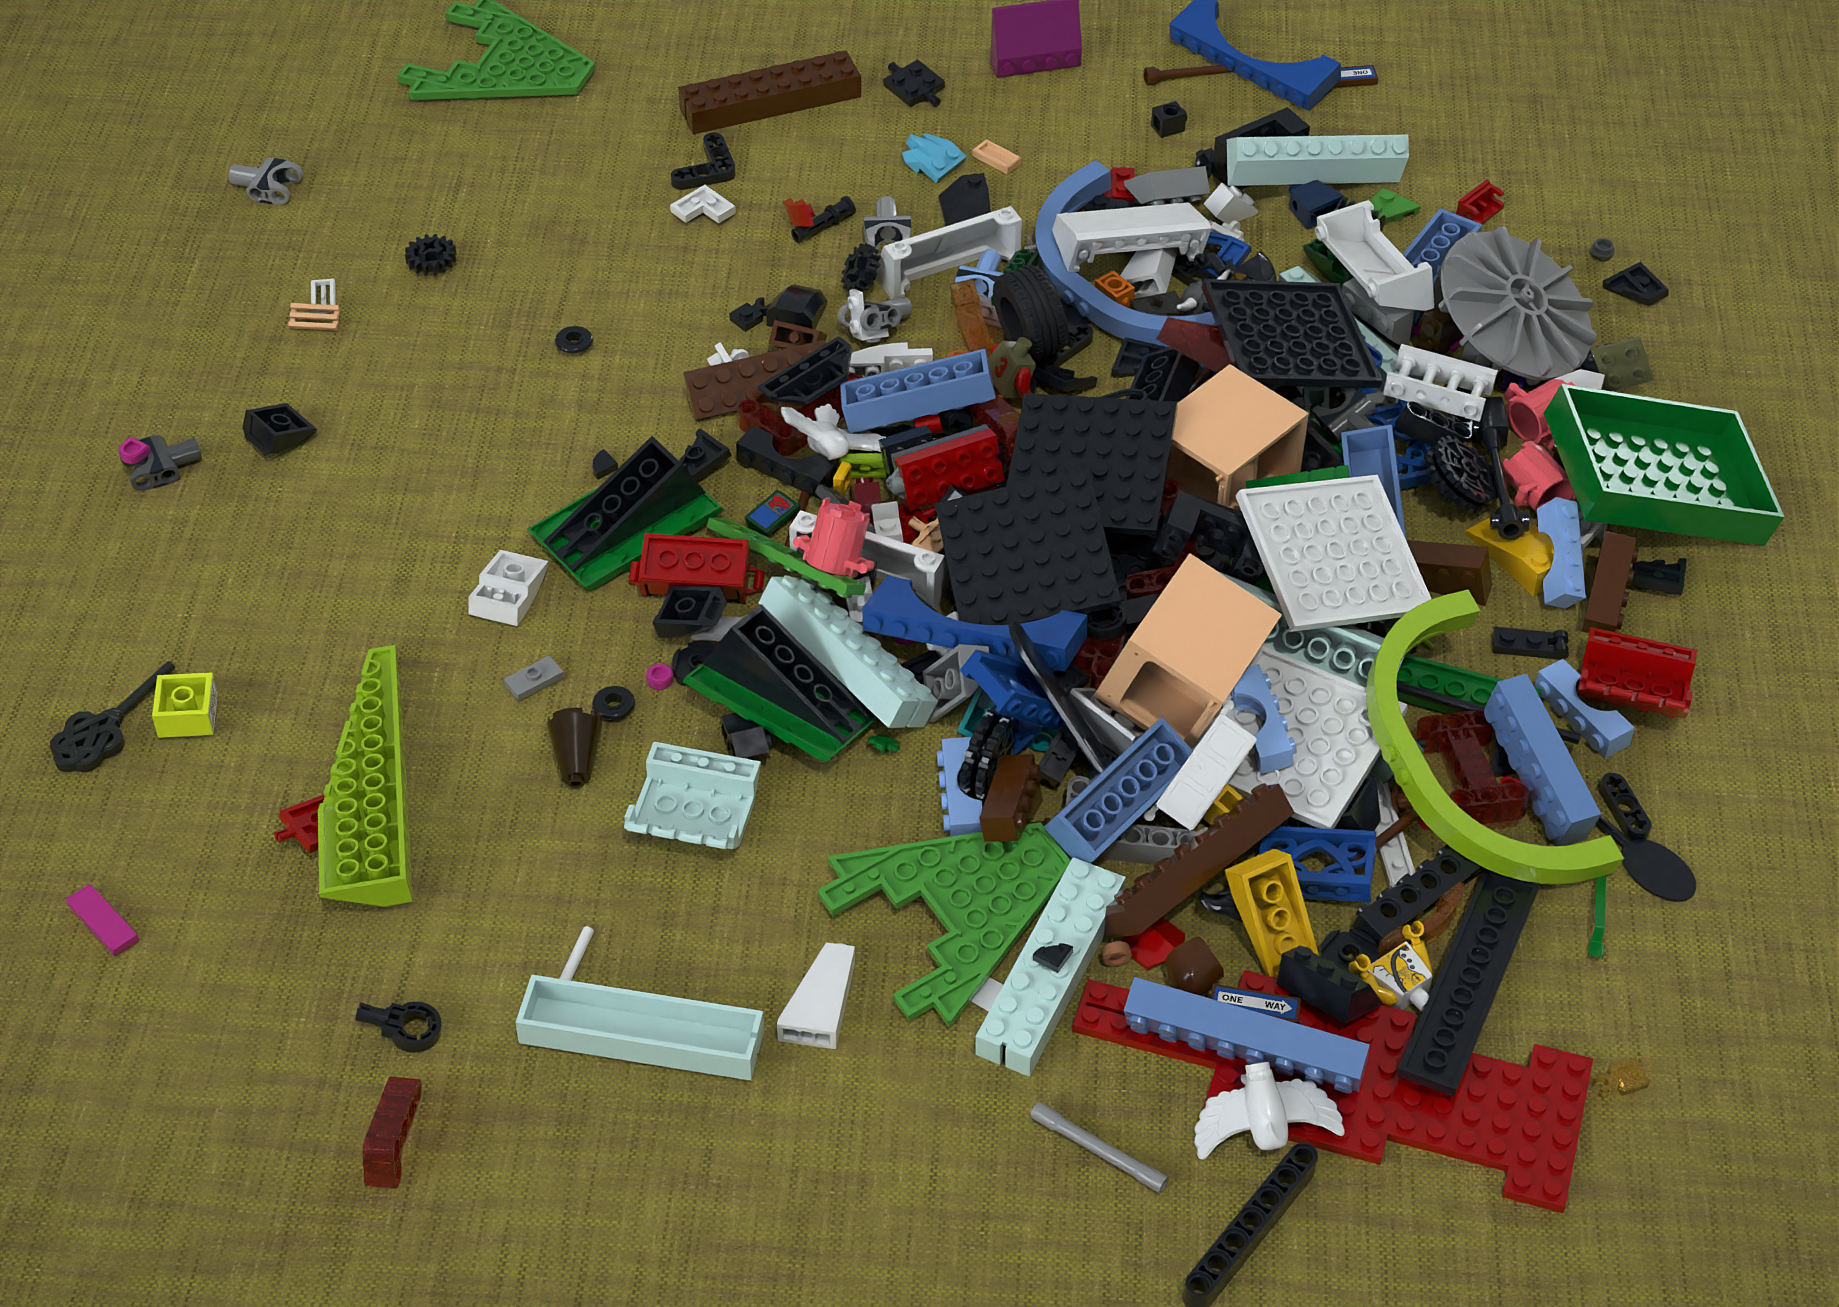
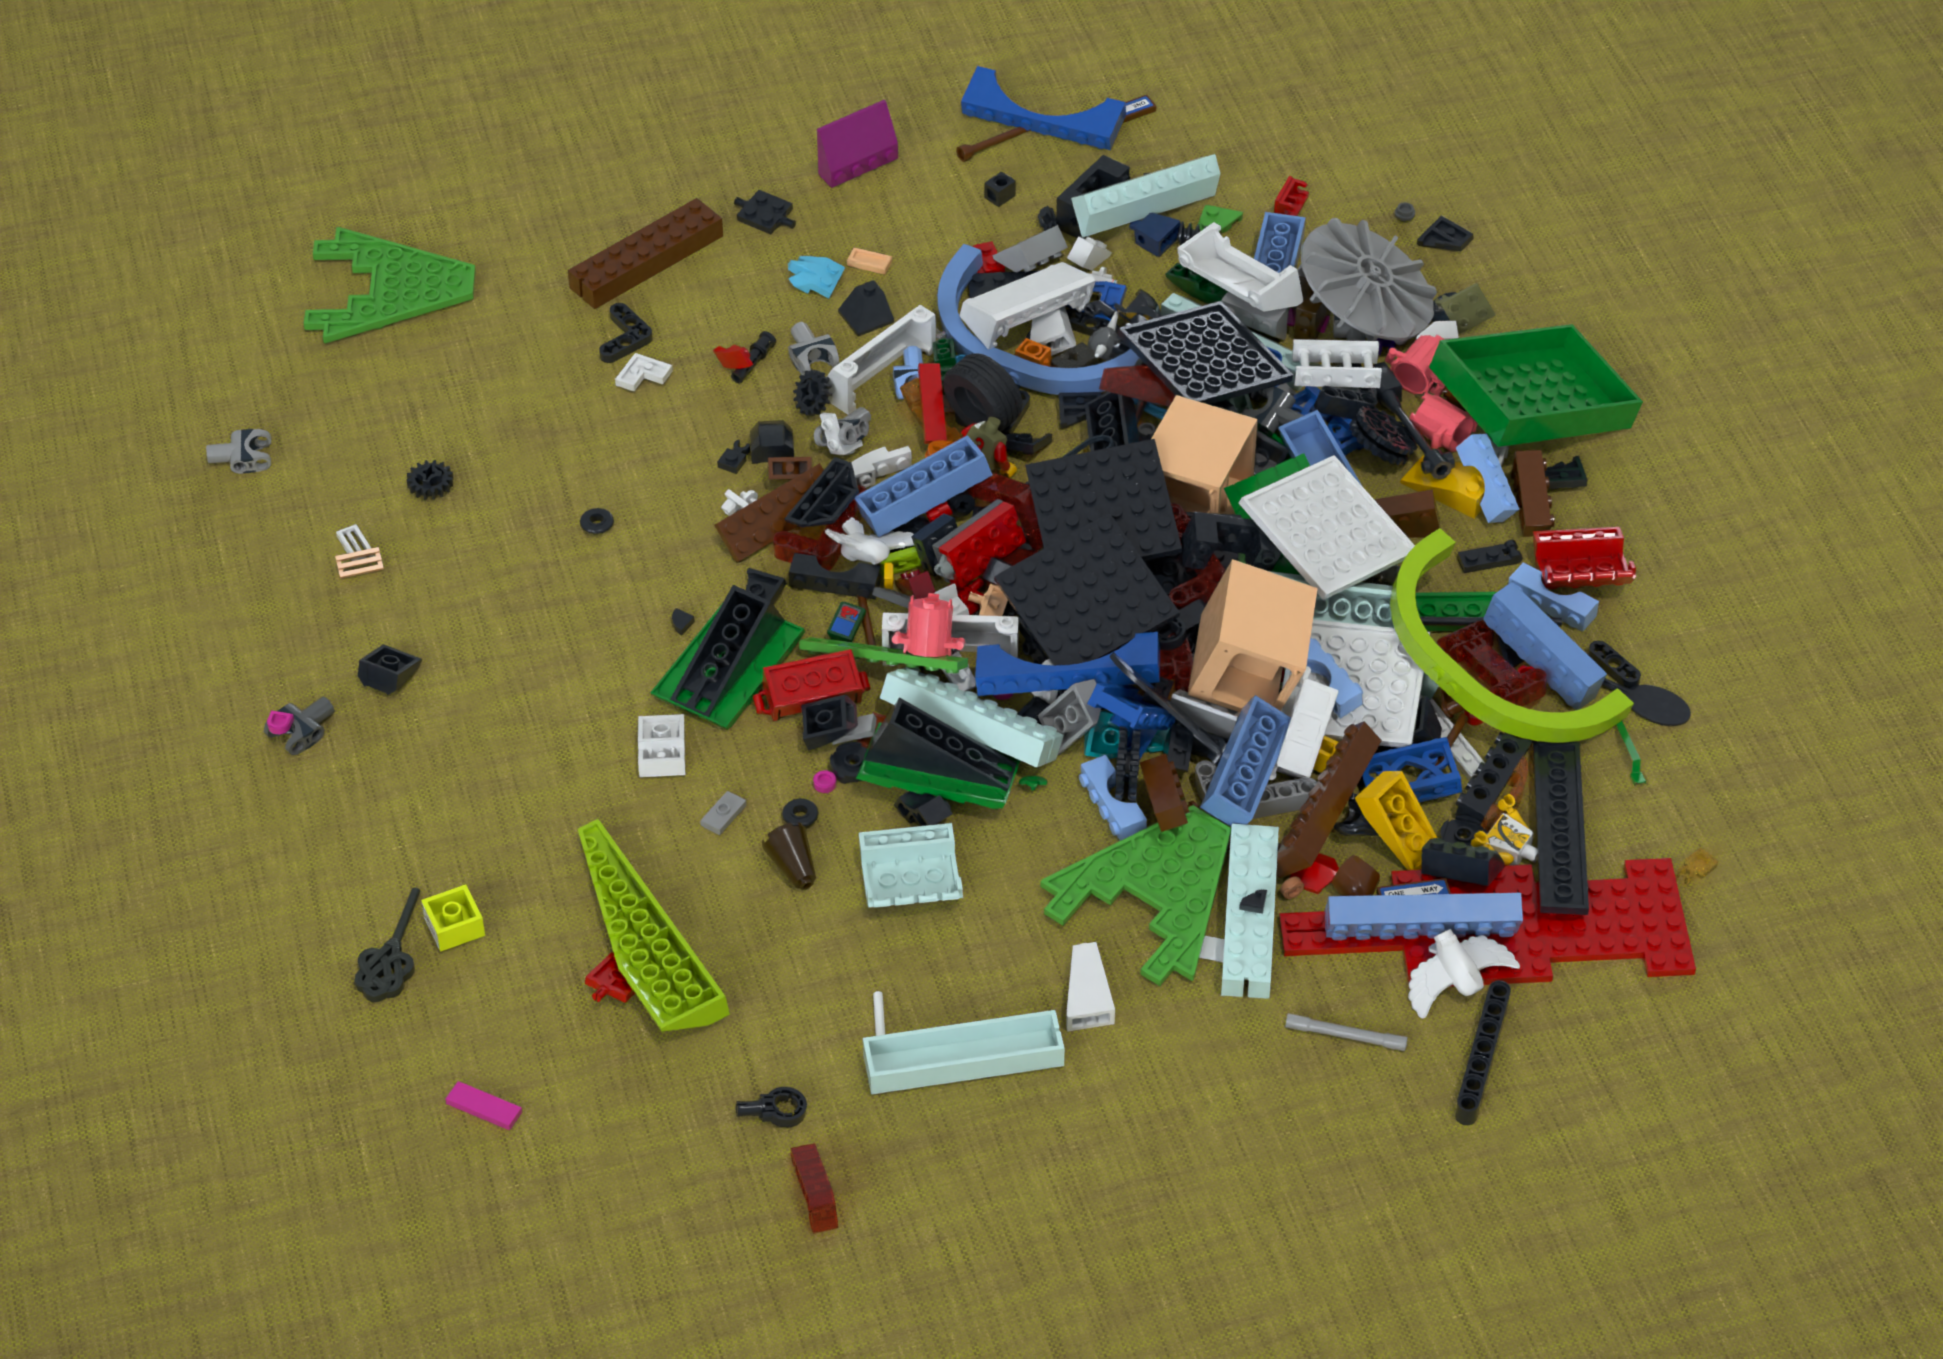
camera: 20 degrees left, 0 degrees up
(977, 309) = (932, 402): none -> red tile

